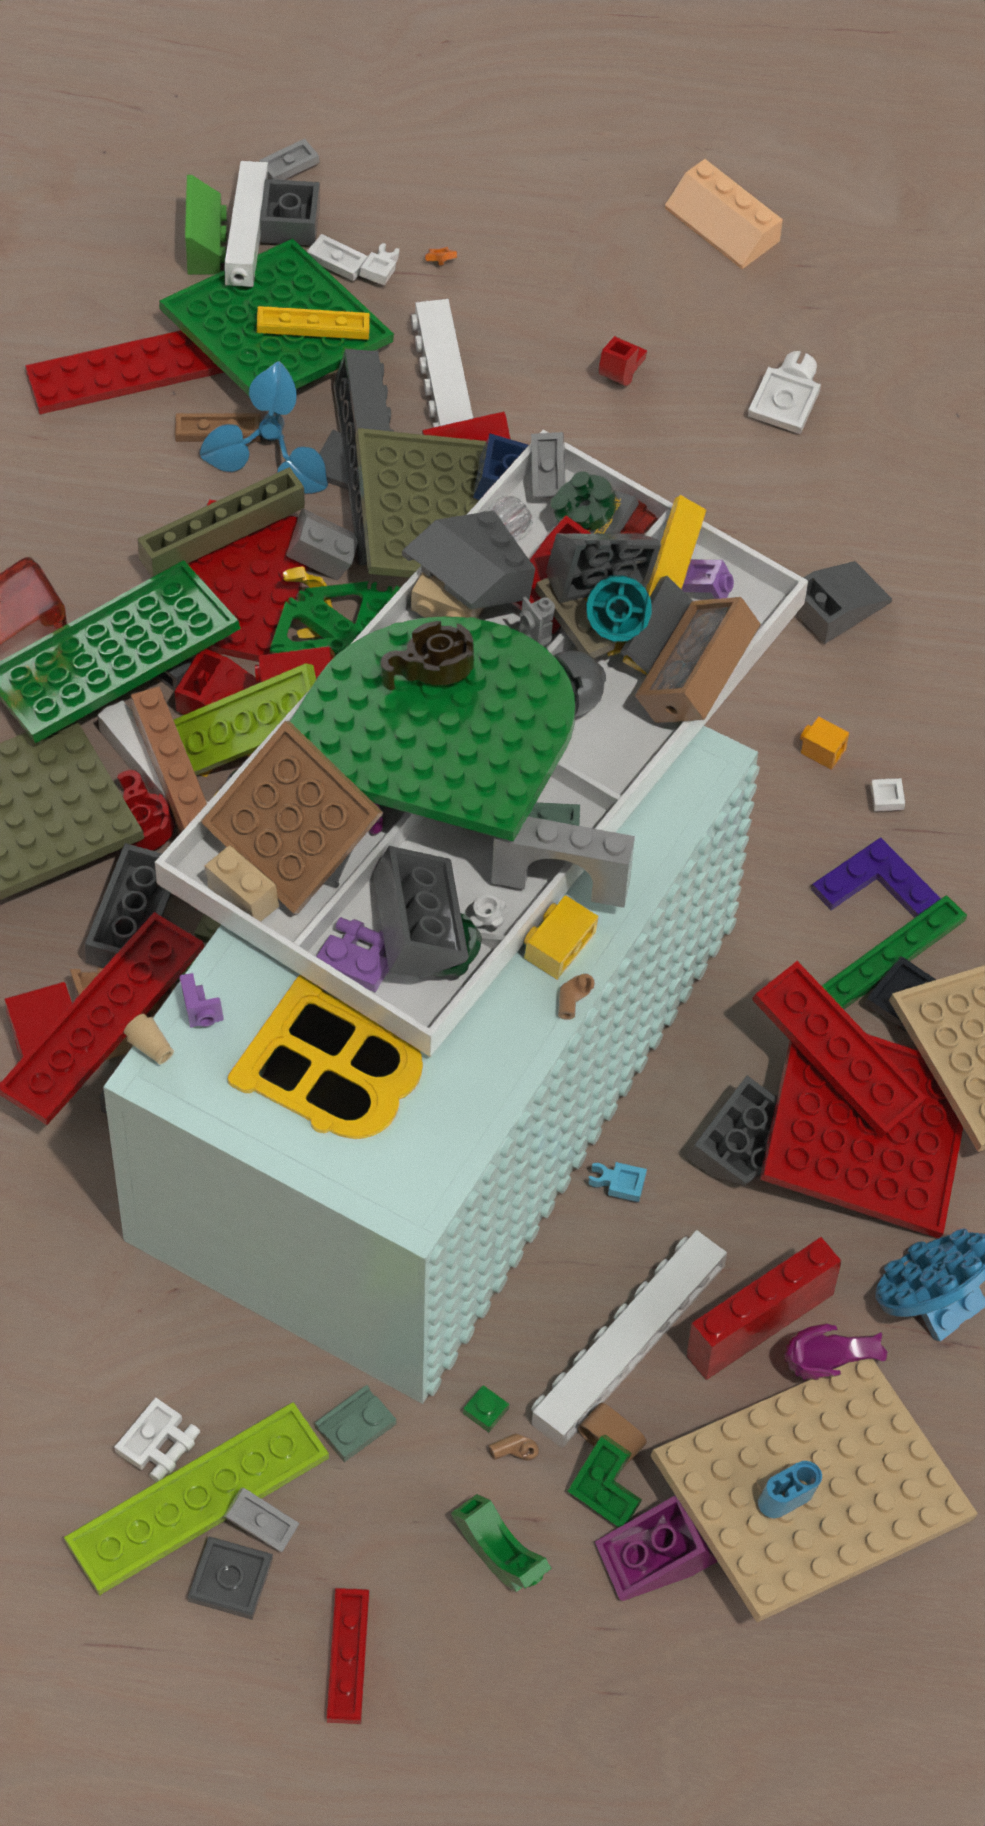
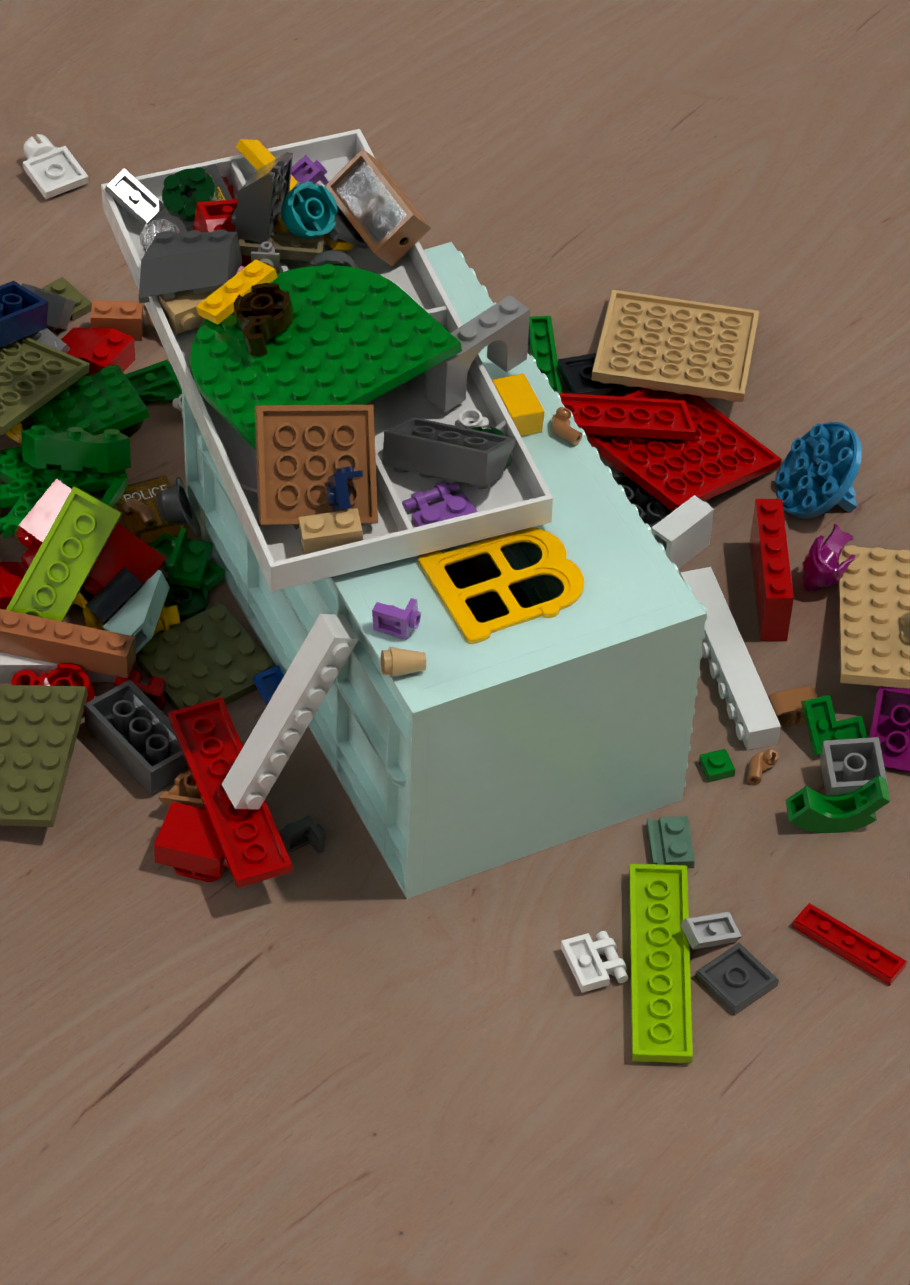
camera: 55 degrees left, 10 degrees down
(136, 995) = (290, 711): none -> white brick
(274, 855) = (337, 493): none -> dark blue bracket
(478, 618) = (221, 302): none -> yellow plate
(561, 1533) = (850, 764): none -> light grey brick
(748, 1202) = (685, 531): none -> white brick

